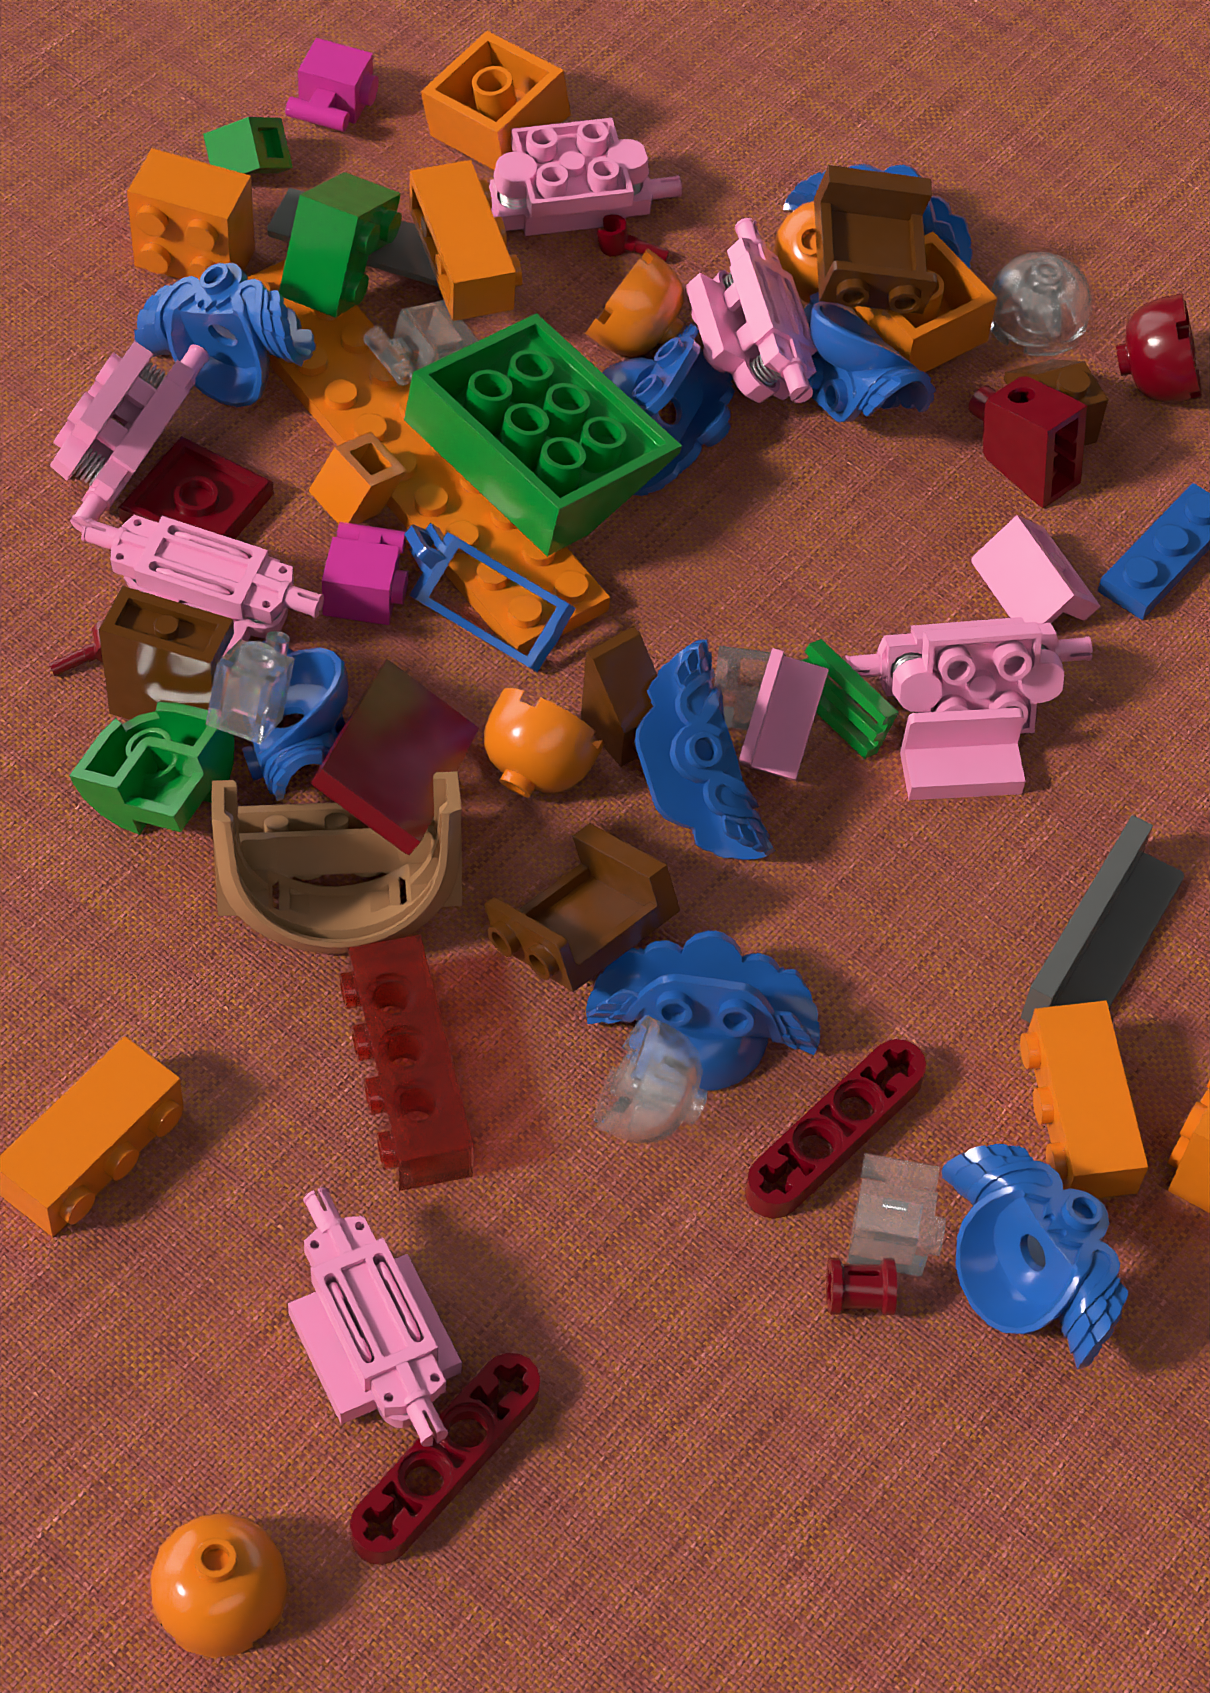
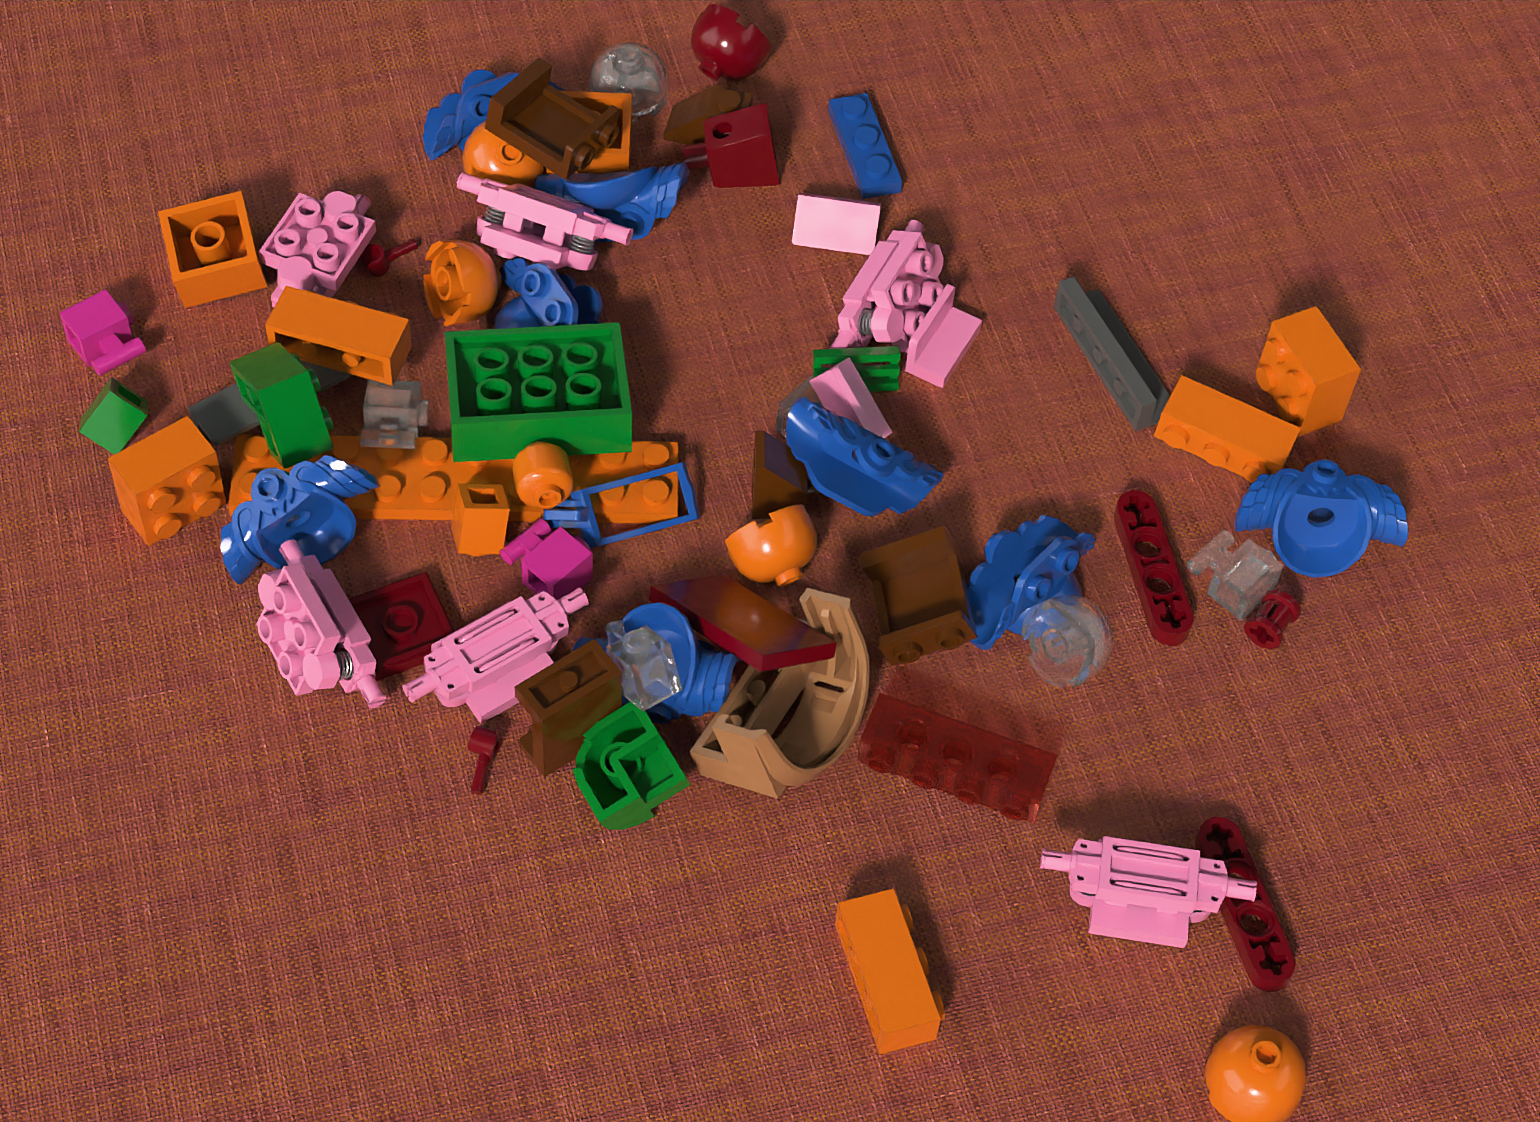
camera: 55 degrees left, 0 degrees up
(442, 494) = (543, 475): none -> orange head

